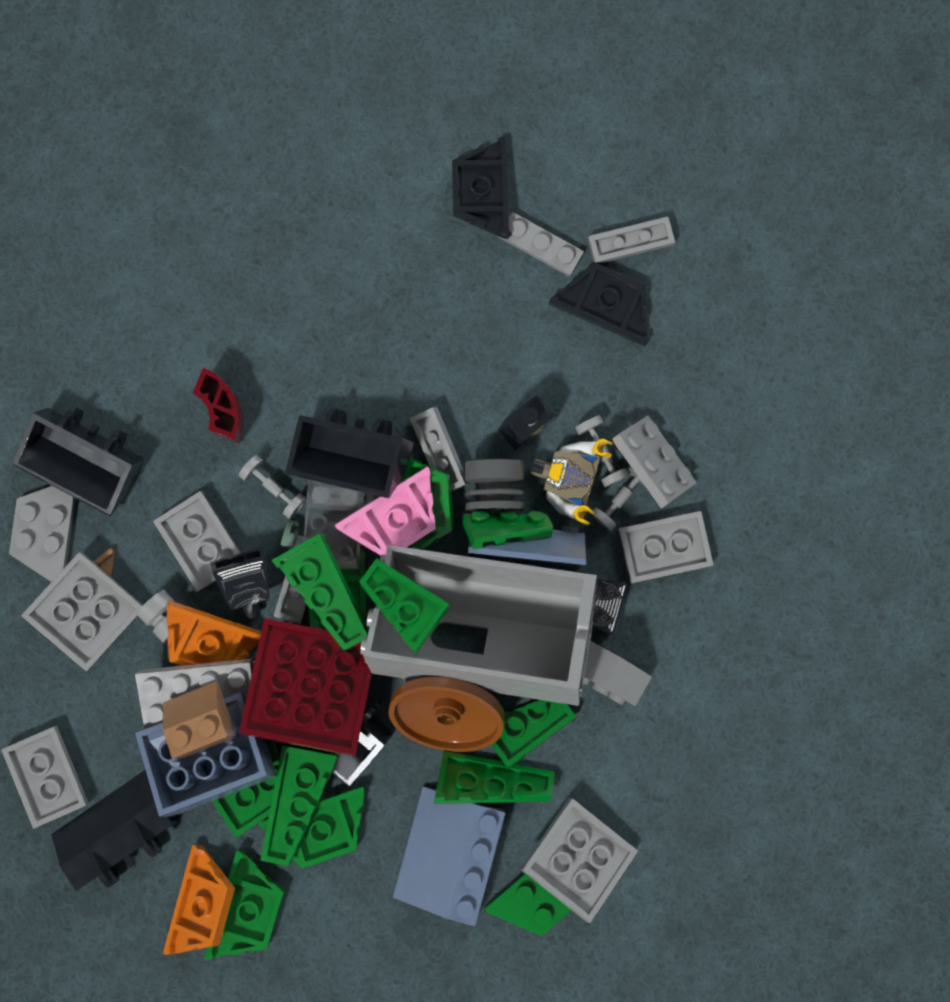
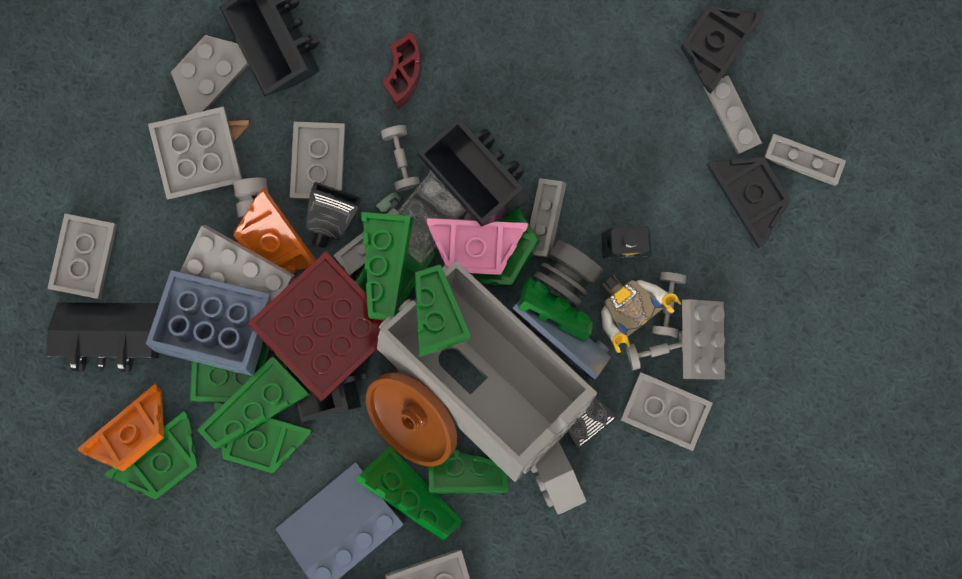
camera: 40 degrees right, 0 degrees up
(196, 721) = (222, 292): medium nougat slope -> none

